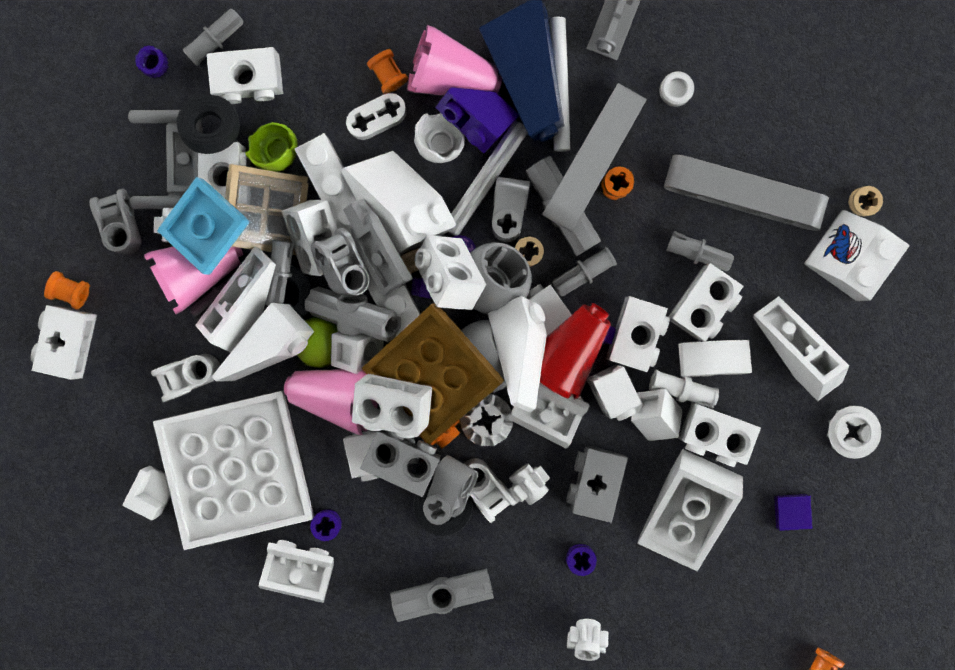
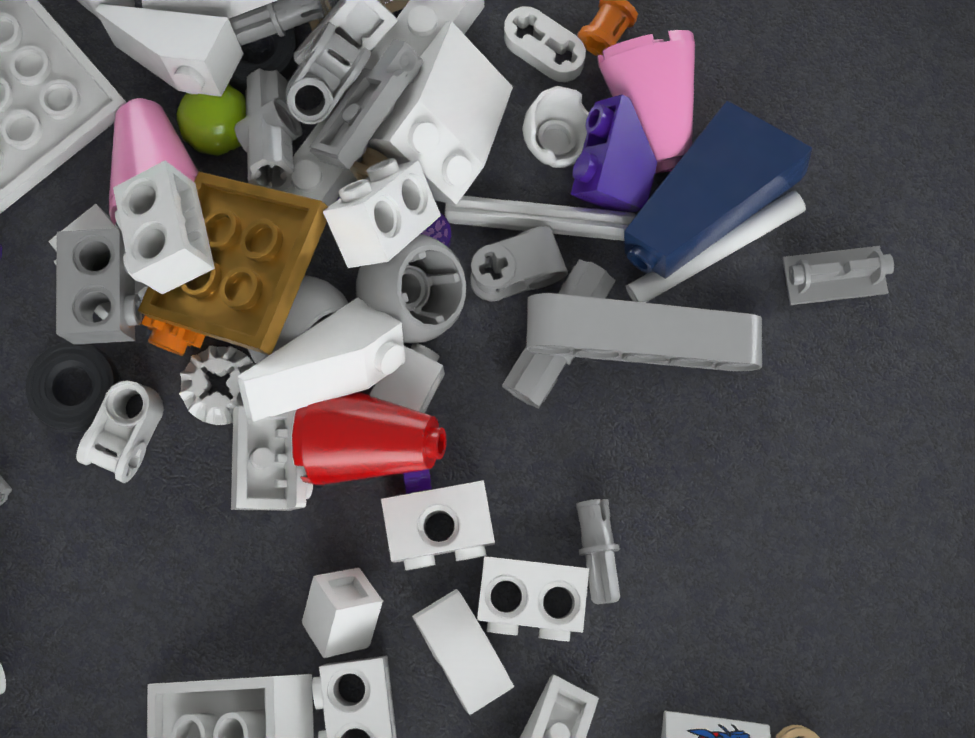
camera: 65 degrees right, 10 degrees down
(353, 351) = (217, 149): white brick -> none
(449, 490) = (88, 371): light grey piece -> none
(528, 484) = (155, 483): white gear -> none
(536, 258) = (482, 309): tan bush -> none
(581, 571) = (81, 600): dark purple bush -> none
(584, 272) = (486, 408): light grey axle -> none
(602, 501) = (172, 584): light grey brick -> none
(614, 392) = (337, 530): white brick -> none
(627, 182) = (639, 376): orange bush -> none
(676, 89) = (799, 403): white tile -> none
(684, 389) = (398, 632): white pin -> none
(746, 192) = (715, 573): light grey beam -> none

